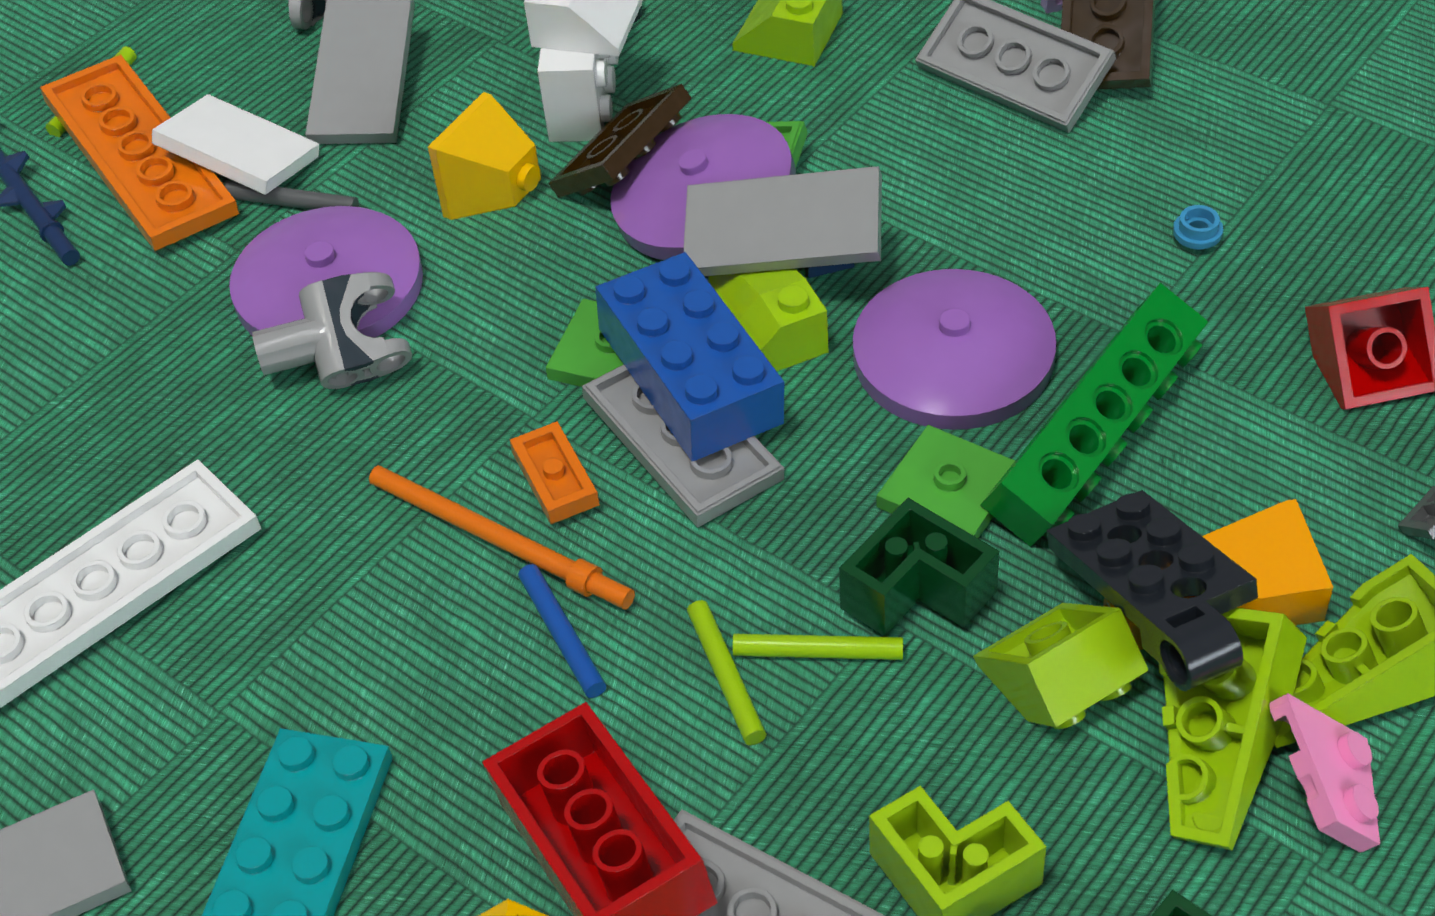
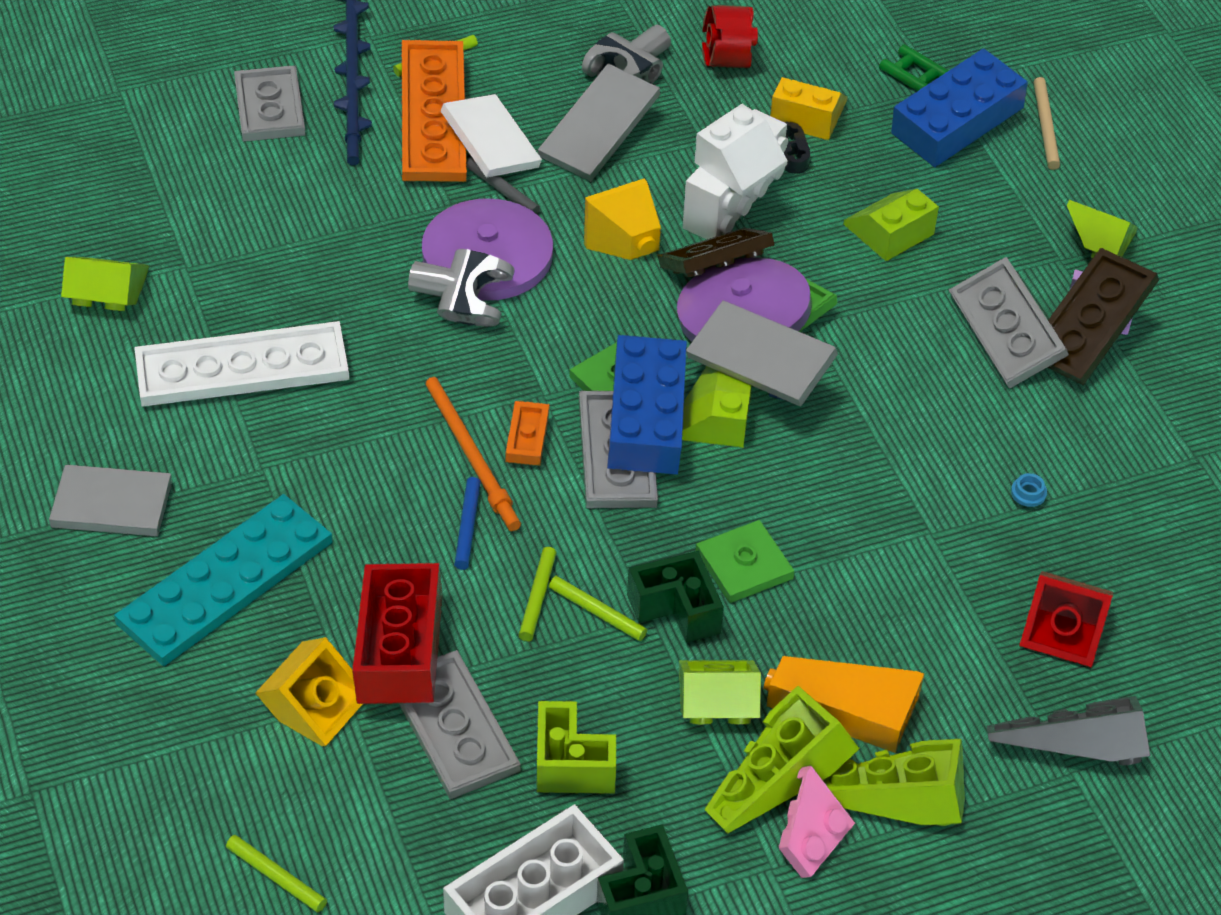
camera: 25 degrees right, 0 degrees up
(954, 349) = (817, 484): medium lavender dish -> none
(1095, 415) = (940, 530): green brick -> none
(1146, 565) = (795, 655): black hinge -> none

